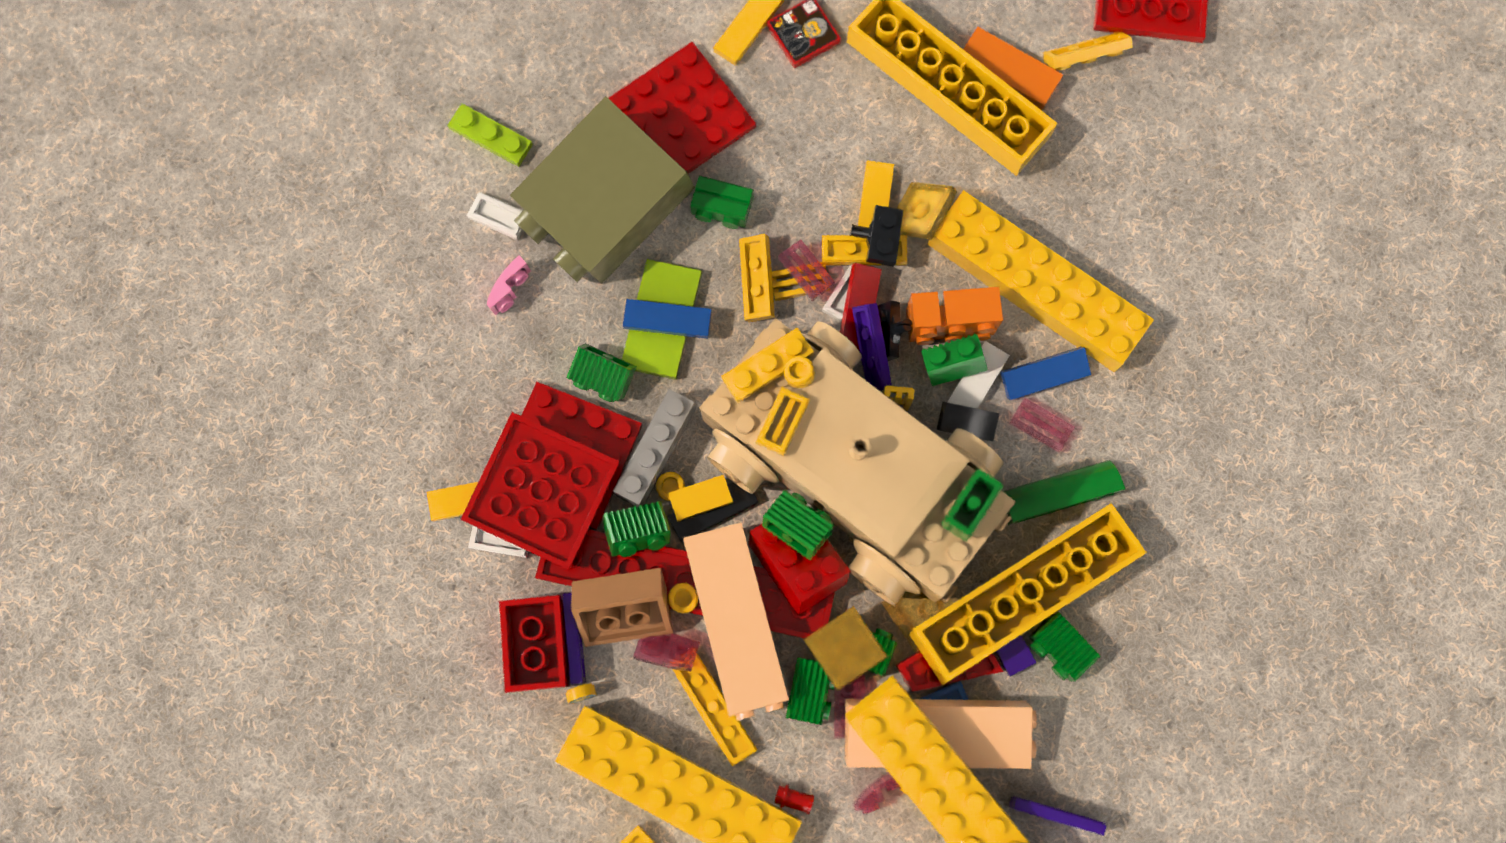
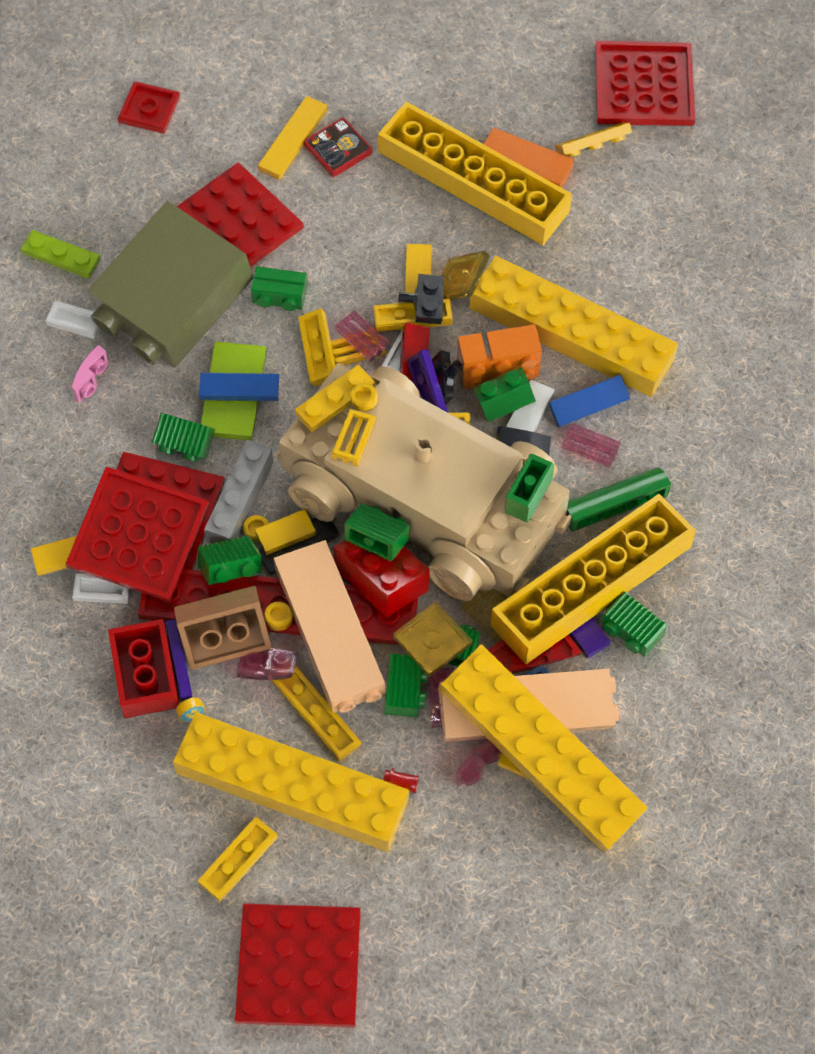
camera: 10 degrees left, 15 degrees down
(1058, 815) = (646, 766): dark purple tile -> none

